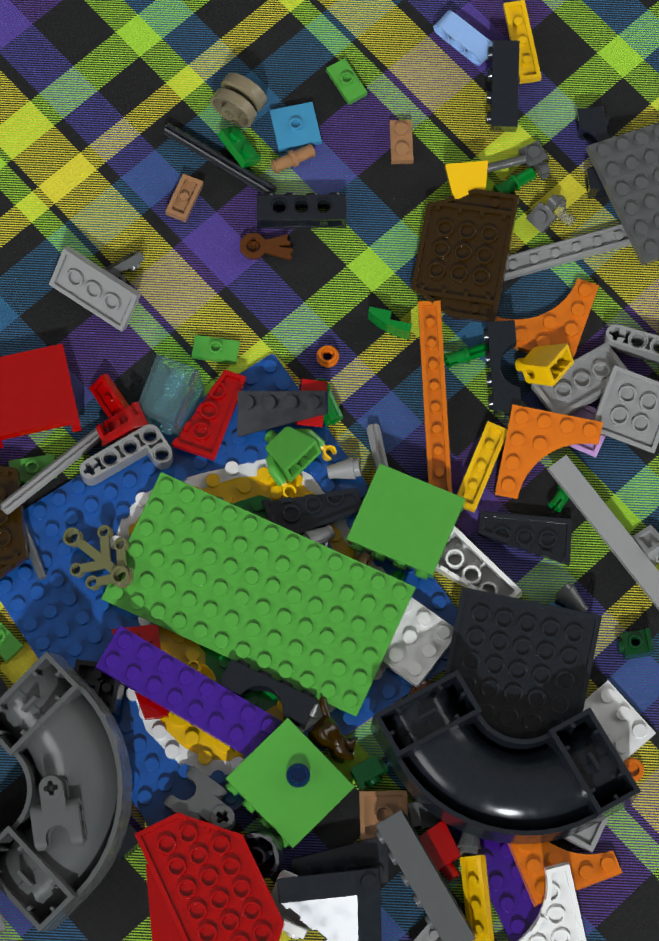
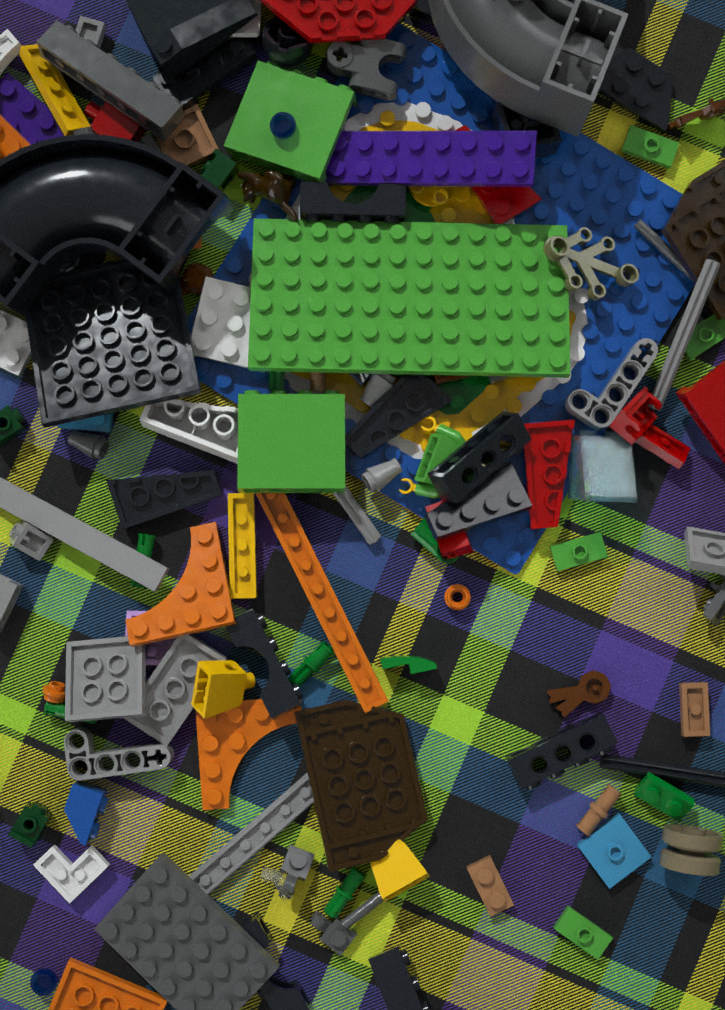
camera: 160 degrees right, 15 degrees up
(262, 440) = (494, 443): none -> black brick

